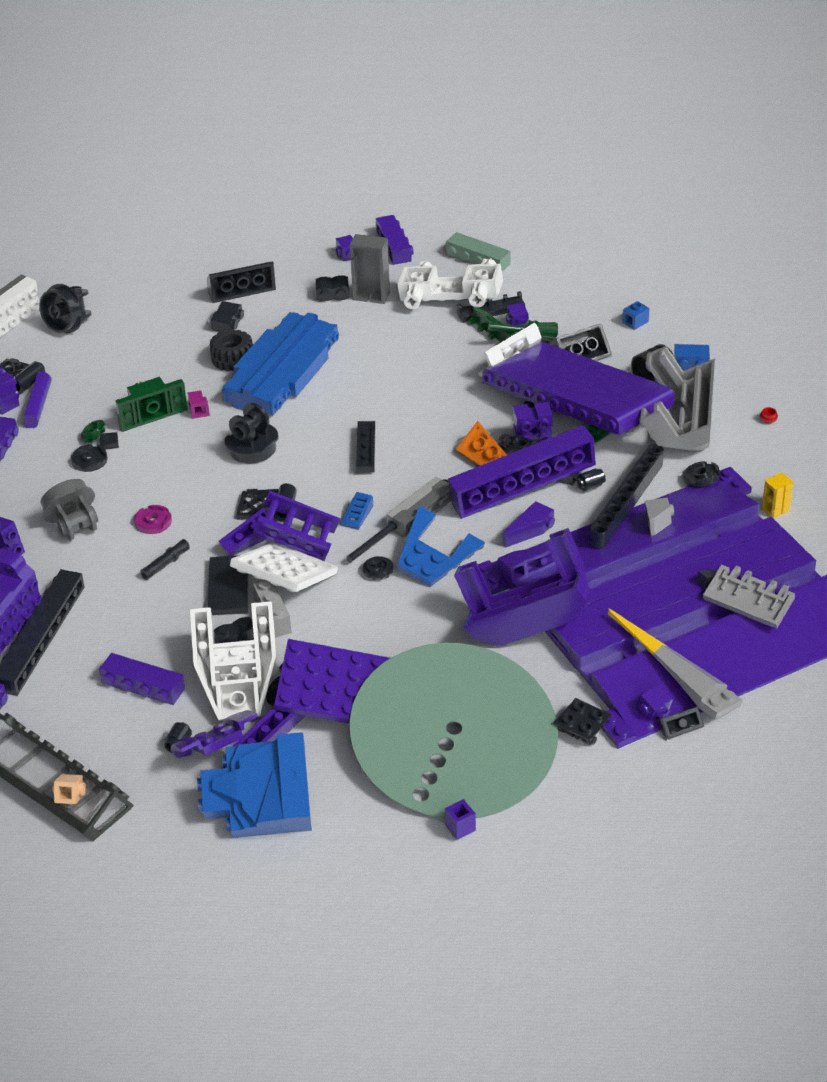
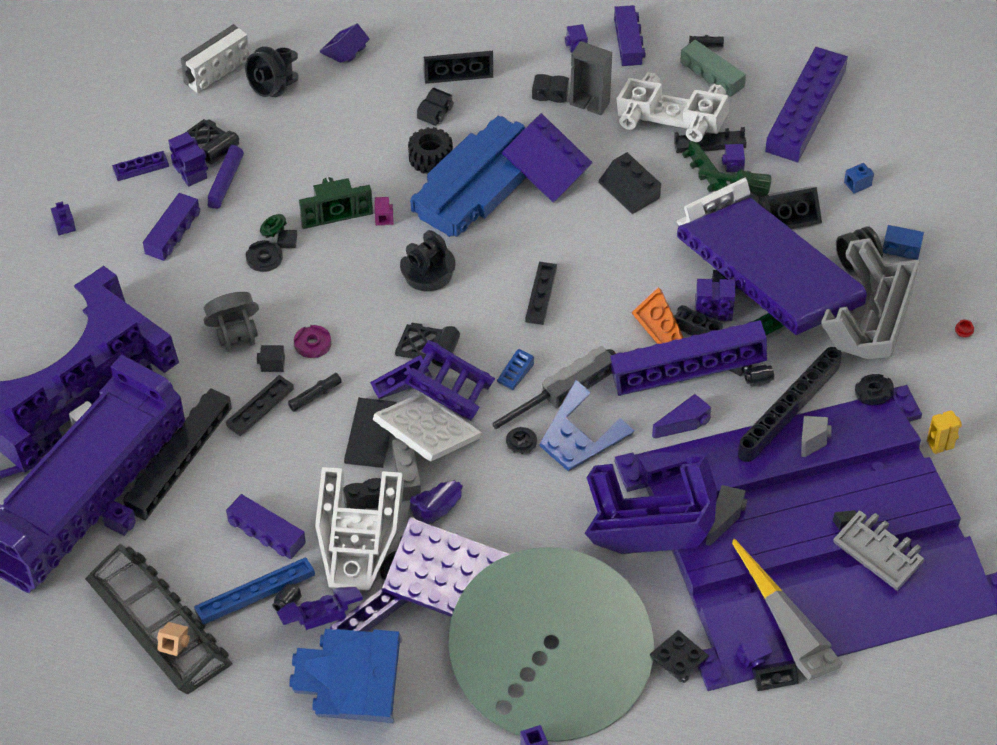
camera: 10 degrees right, 10 degrees up
(112, 578) = (259, 405): none -> black plate
(115, 538) = (271, 358): none -> black brick
(131, 281) = (346, 44): none -> dark purple slope
(141, 736) = (254, 591): none -> blue plate
(309, 629) = (436, 503): none -> dark purple hair
(344, 336) = (547, 157): none -> dark purple slope
(427, 349) = (630, 183): none -> black slope
(474, 233) = (708, 41): none -> black pin
(571, 267) = (806, 104): none -> dark purple brick
(598, 582) = (727, 512): none -> dark grey slope

